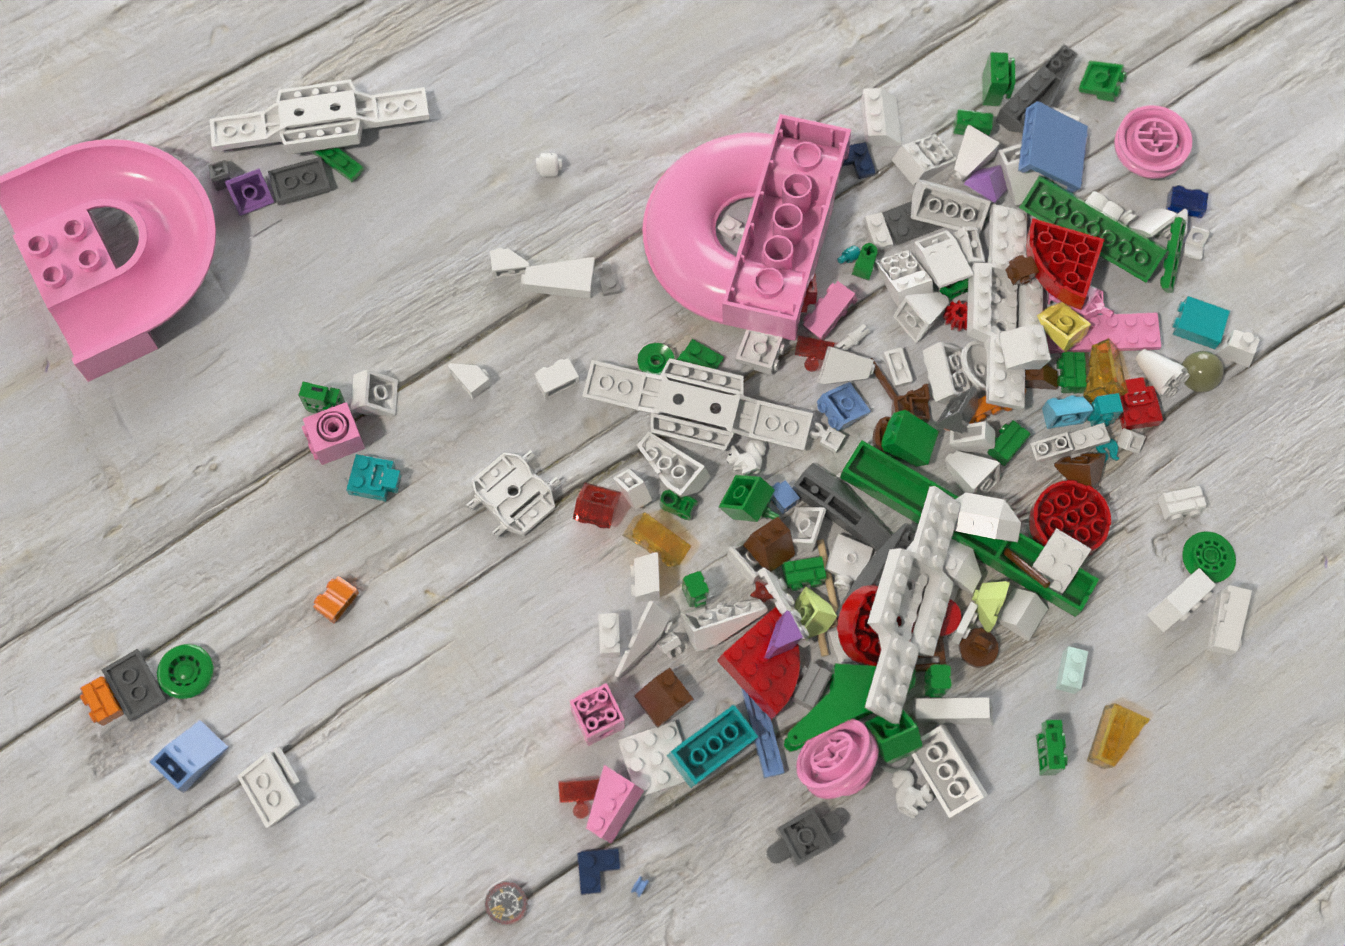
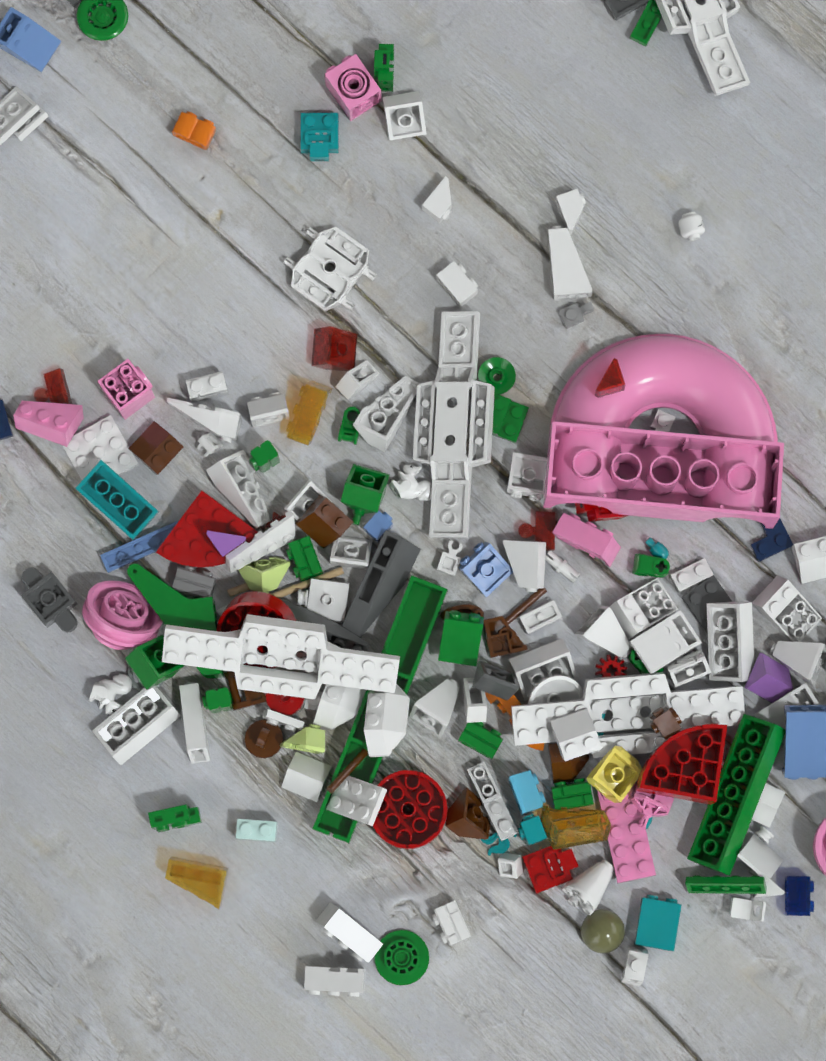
camera: 85 degrees right, 10 degrees up
(689, 245) = (612, 381): none -> clear red slope

